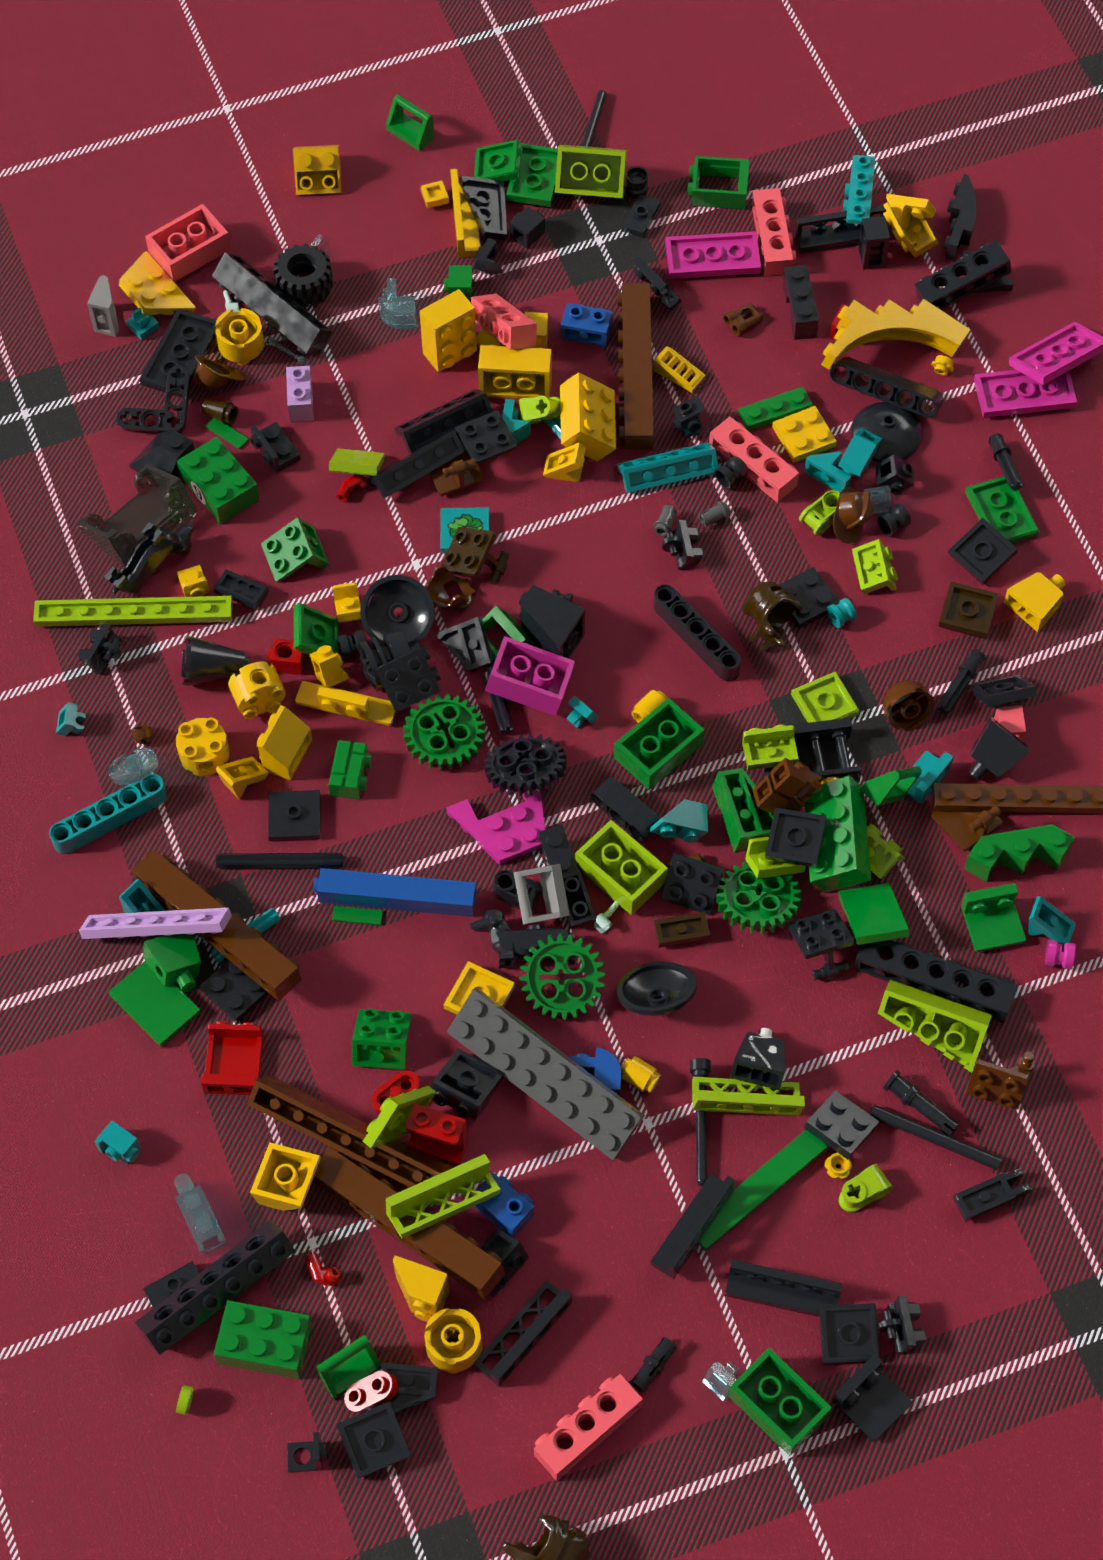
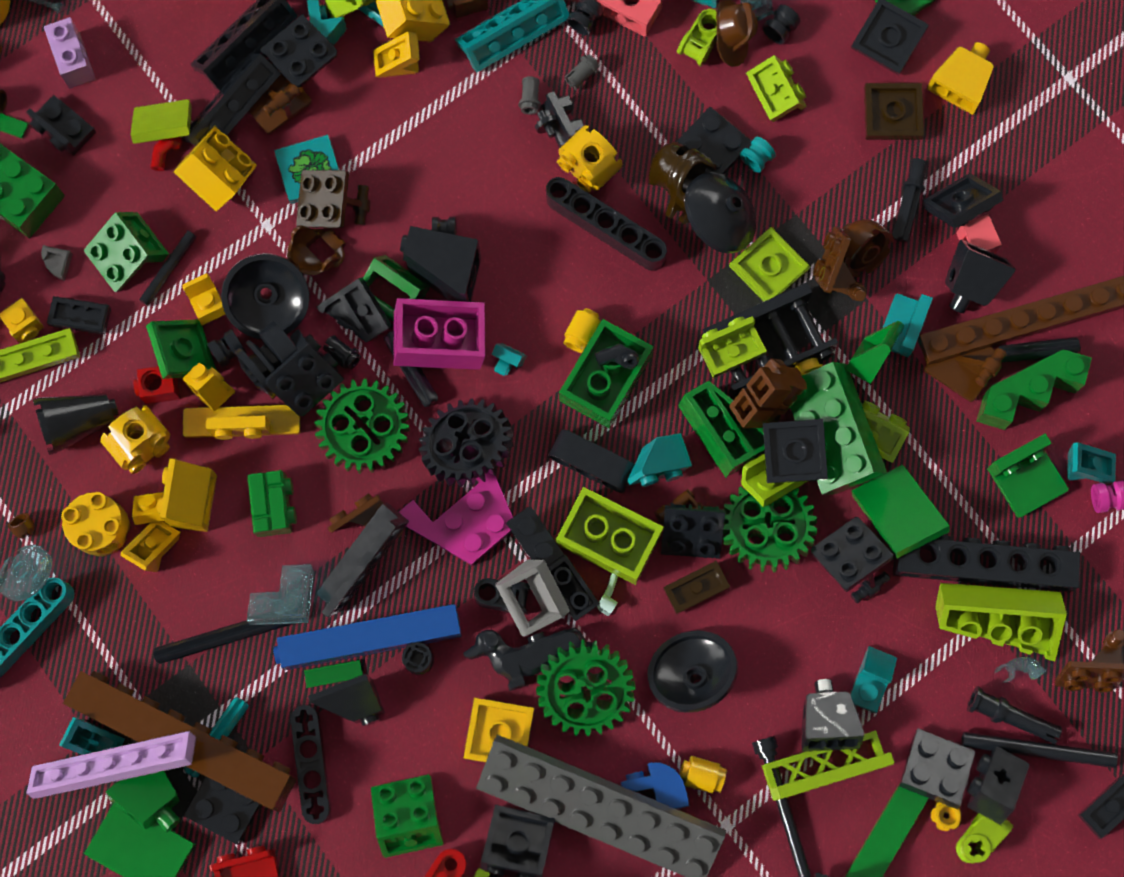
camera: 15 degrees left, 15 degrees up
(236, 545) = (56, 261): none -> flat silver tile
(247, 747) = (146, 508): none -> yellow plate
(294, 815) = (225, 574): black plate -> none
(315, 977) = (315, 763): none -> black beam
(324, 574) = (167, 268): none -> black bar
(338, 848) = (288, 604): none -> clear light blue plate
(364, 931) = (353, 700): none -> black slope
(388, 507) = (215, 168): none -> yellow slope
(410, 827) = (361, 559): none -> black fence
(426, 793) = (365, 510): none -> reddish brown plate
(431, 925) = (420, 663): none -> black wheel
(449, 677) = (348, 357): none -> black pin
(672, 726) = (619, 354): none -> black arm
(698, 577) = (595, 148): none -> yellow brick
(795, 646) = (720, 212): none -> black dish
(808, 1043) = (872, 679): none -> teal slope
(876, 716) = (831, 270): none -> reddish brown plate
(887, 1147) = (998, 785): none -> black brick
(944, 1066) = (1024, 664): none -> clear light blue arm
(1022, 821) = (1039, 349): none -> black axle

